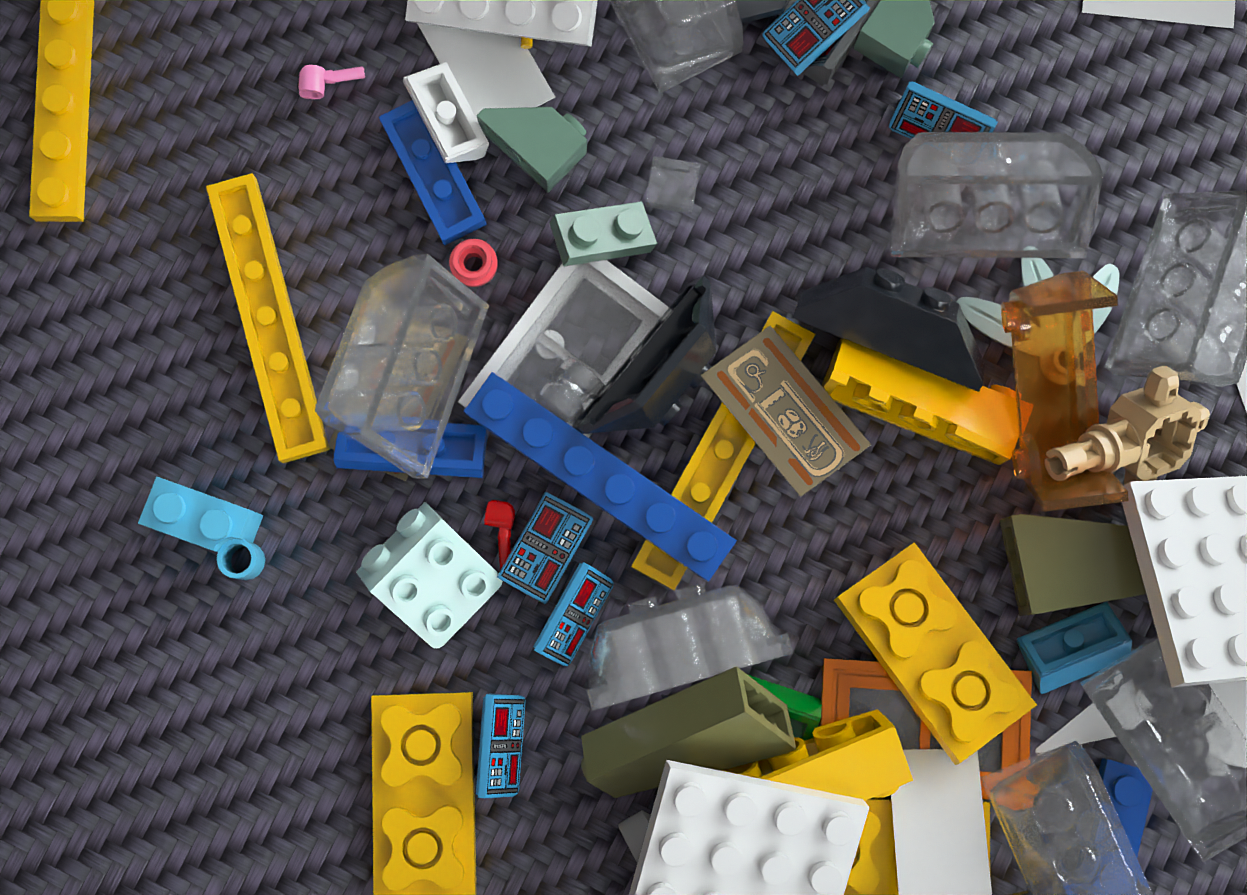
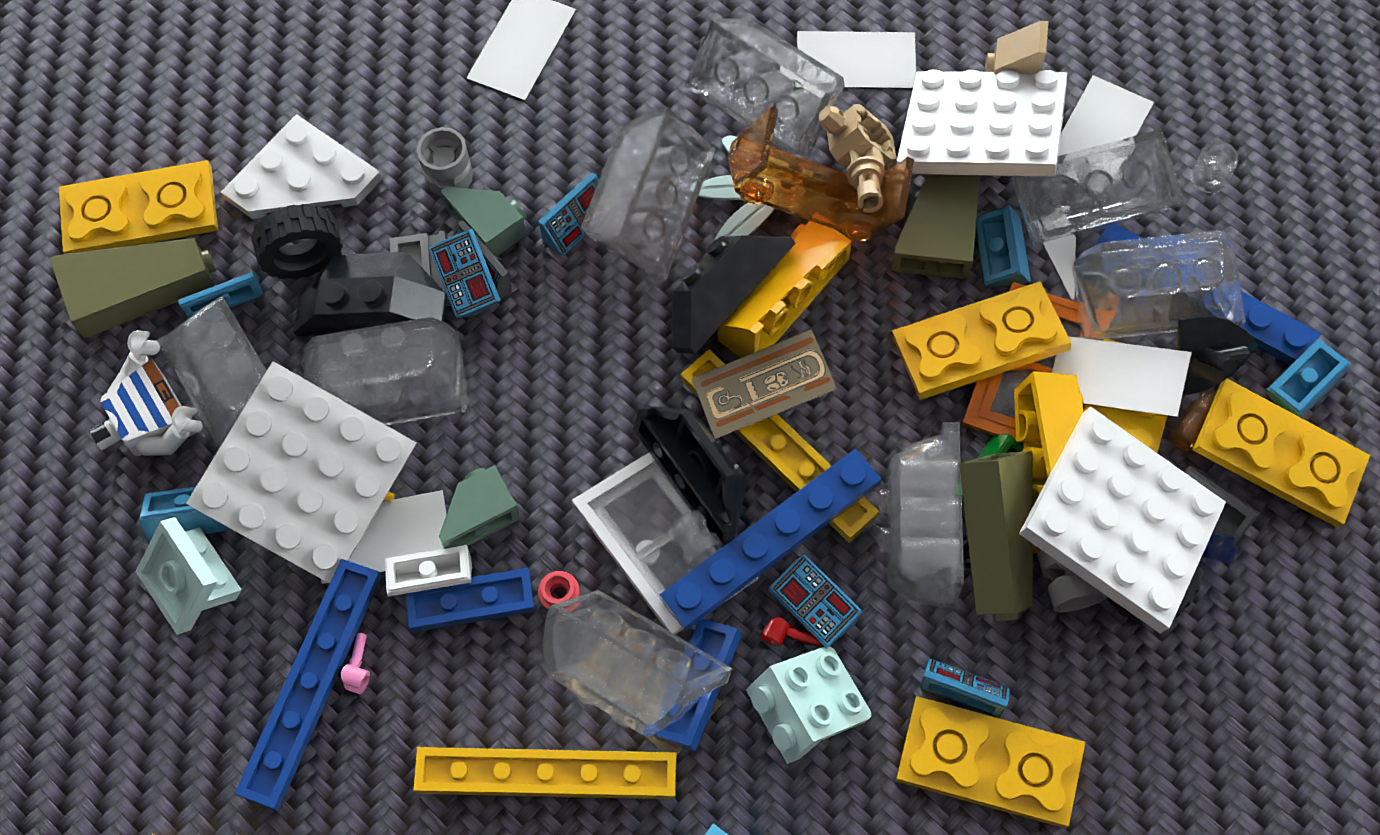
camera: 70 degrees left, 15 degrees down
(291, 37) = (308, 685): none -> blue plate
(573, 614) = (873, 598): slope -> none
(602, 233) = (573, 480): plate -> none
(672, 184) = (550, 421): clear tile -> none

